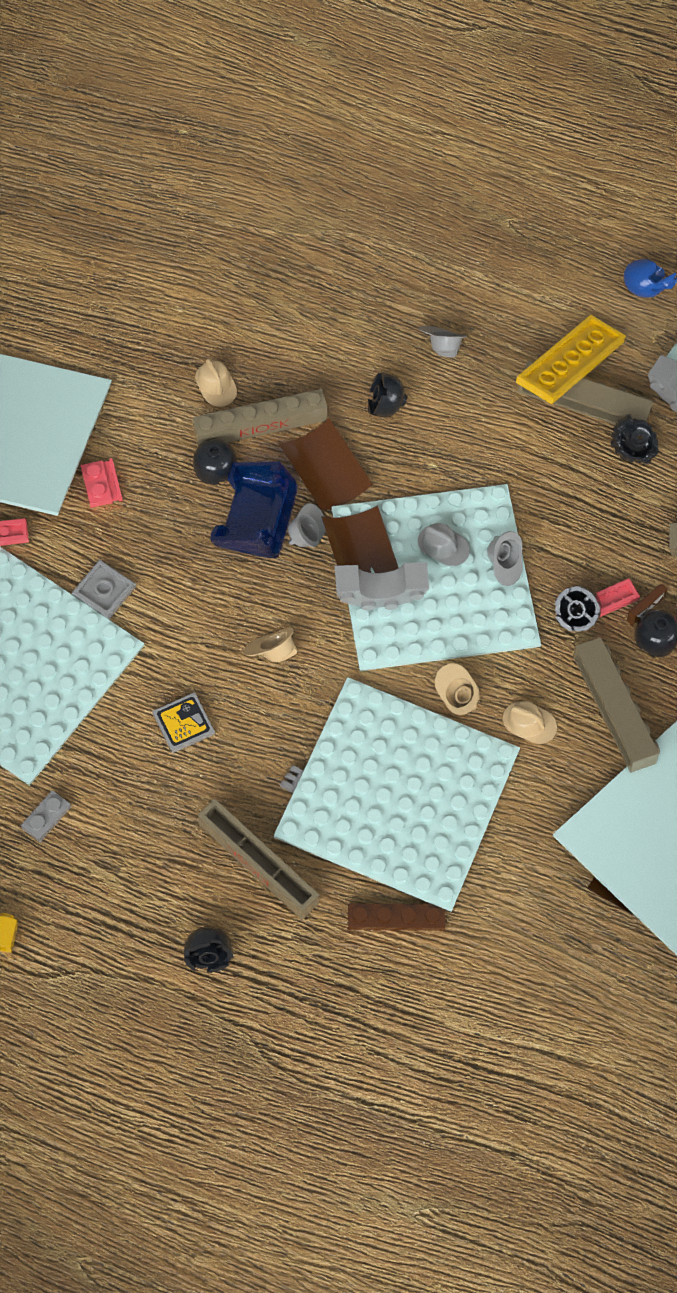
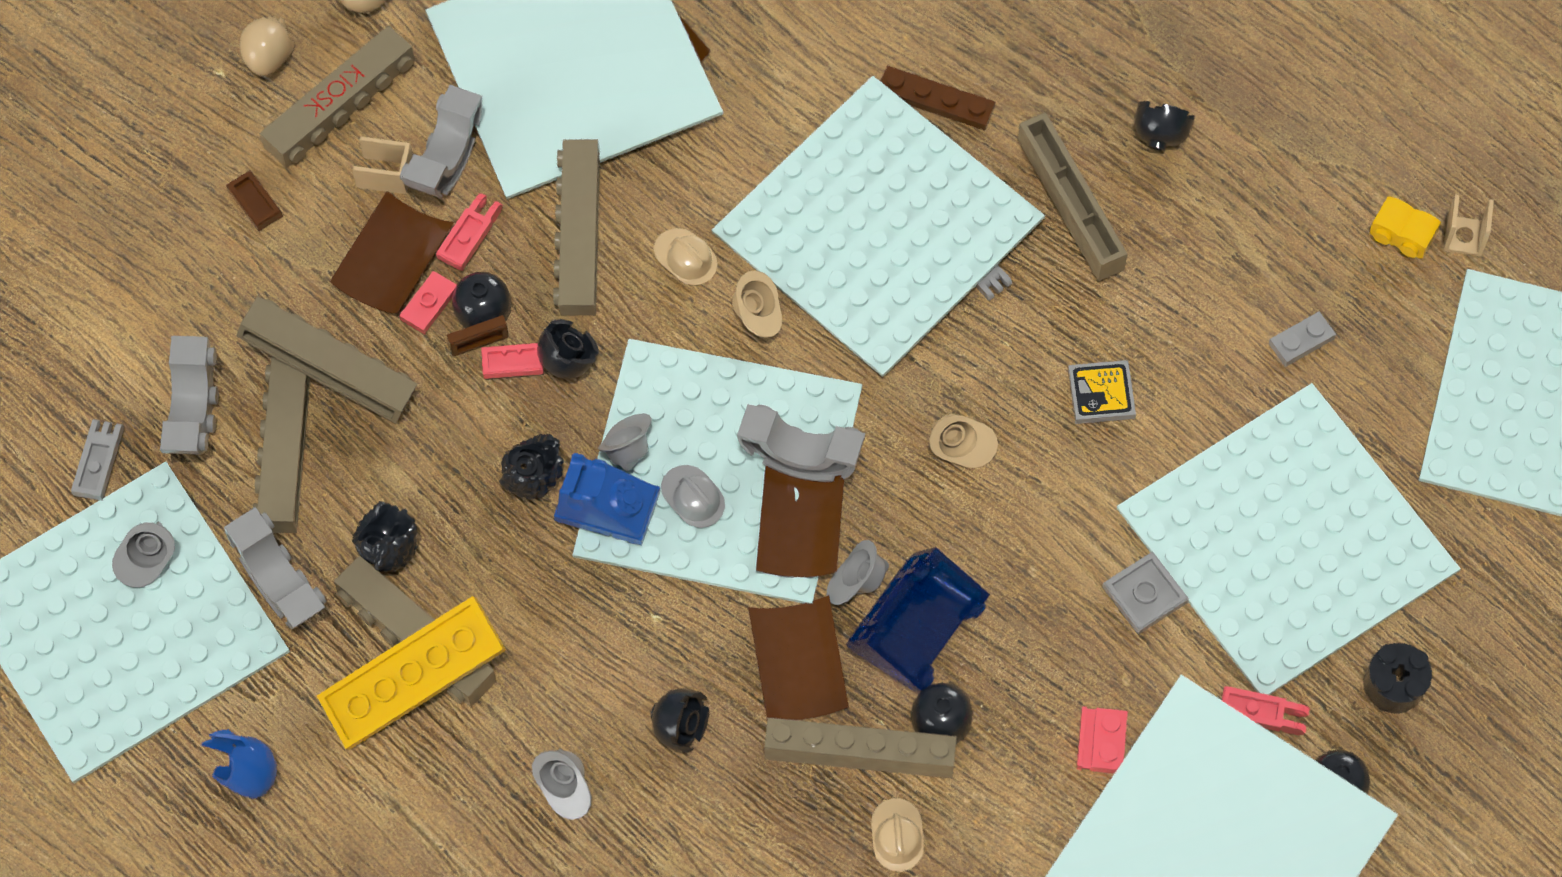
camera: 155 degrees left, 0 degrees up
(500, 512) = (606, 500): none -> blue piece
(562, 519) = (541, 467): none -> black hair

